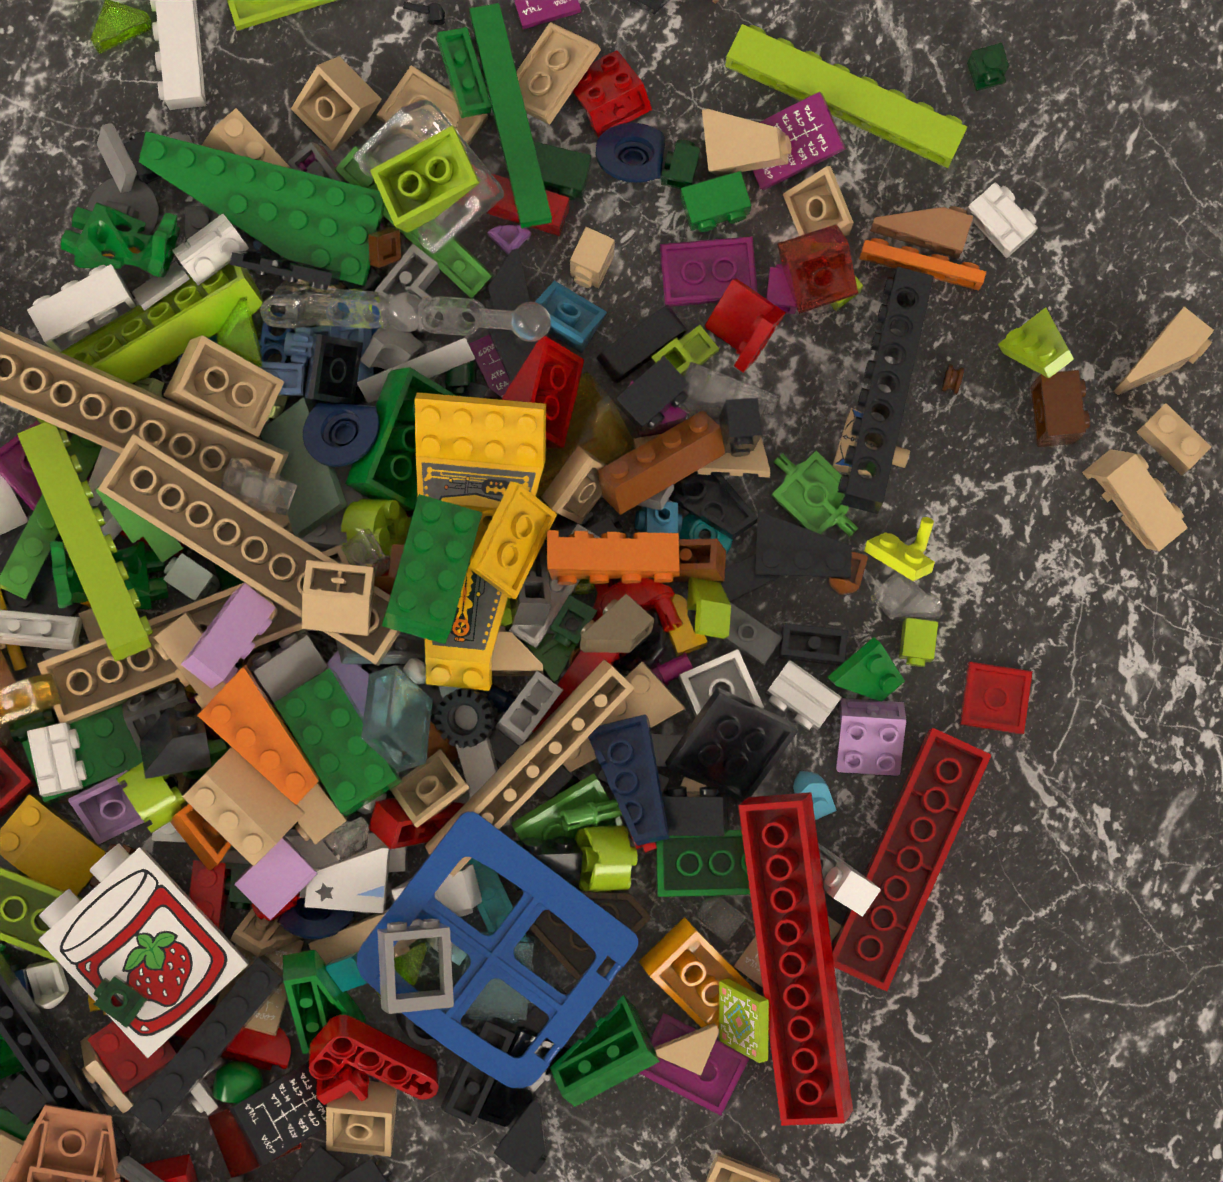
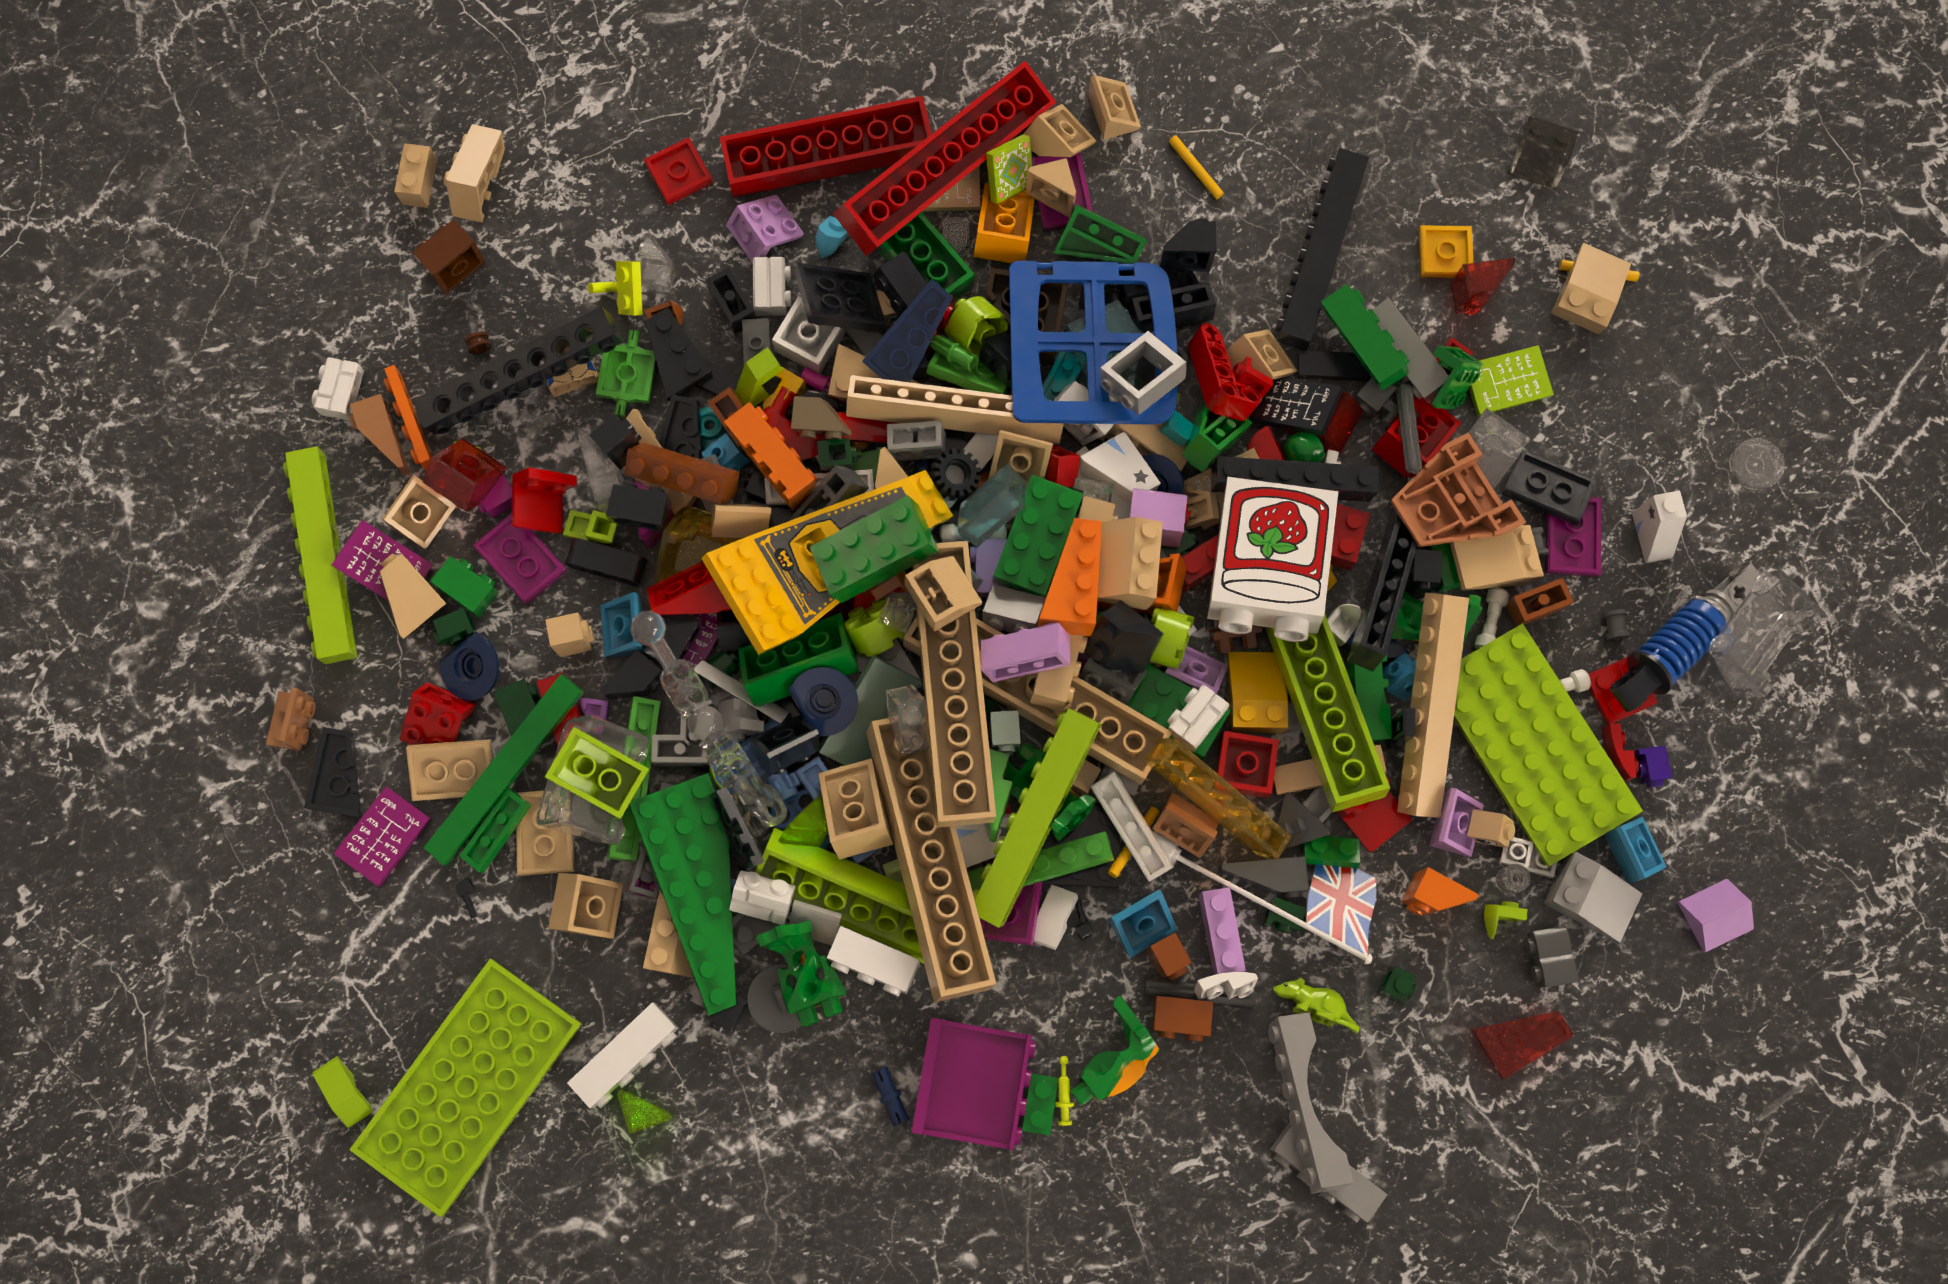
camera: 130 degrees left, 5 degrees down
(97, 1072) = (1370, 541): tan wing -> none
(116, 158) = (744, 1030): light grey tile -> none
(133, 1000) = (1318, 519): dark green brick -> none
(384, 247) = (669, 774): reddish brown plate -> none
(512, 540) = (812, 515): yellow tile -> none
(747, 1105) = (1058, 134): none -> tan slope
(846, 883) = (873, 157): white slope -> none
(868, 672) = (723, 251): green wing -> none
(918, 641) = (678, 240): lime brick -> none
(988, 66) = (229, 473): dark green brick -> none
(1038, 345) = (413, 296): lime wing -> none
(1179, 342) = (356, 217): tan slope -> none

